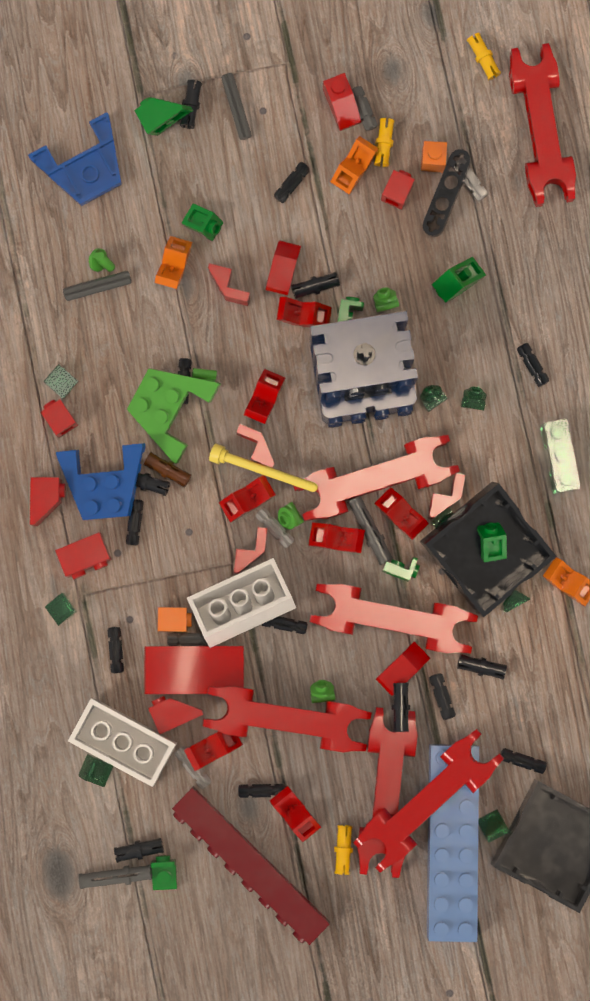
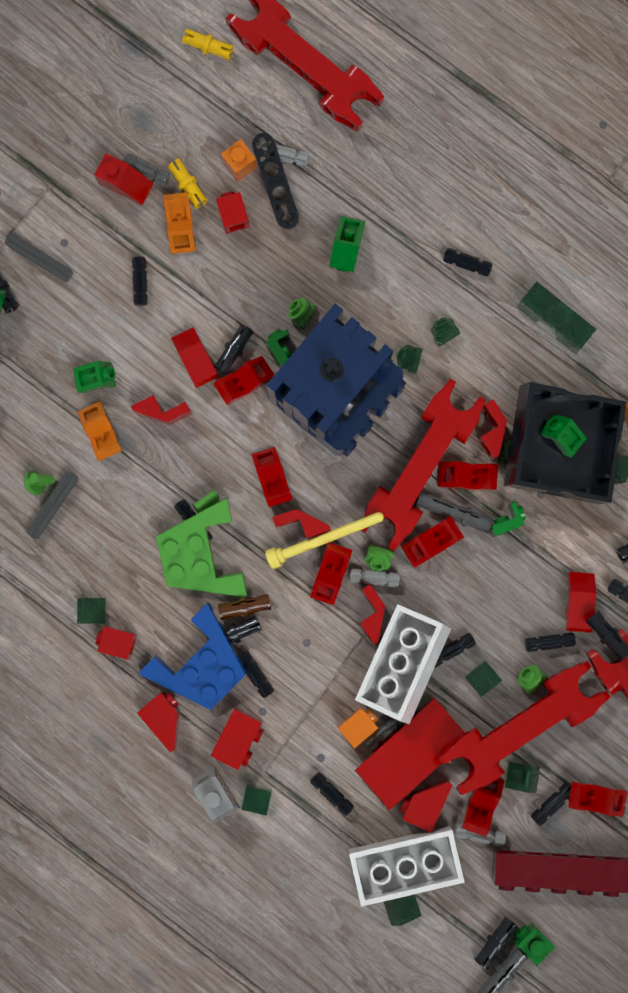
camera: 40 degrees left, 0 degrees up
(34, 580) = (214, 795): none -> light grey torso
(256, 754) = (522, 777): none -> clear green slope
(289, 662) = (483, 678): none -> clear green slope
(357, 678) = (550, 642): none -> black axle
(435, 626) = (576, 545): piece -> none

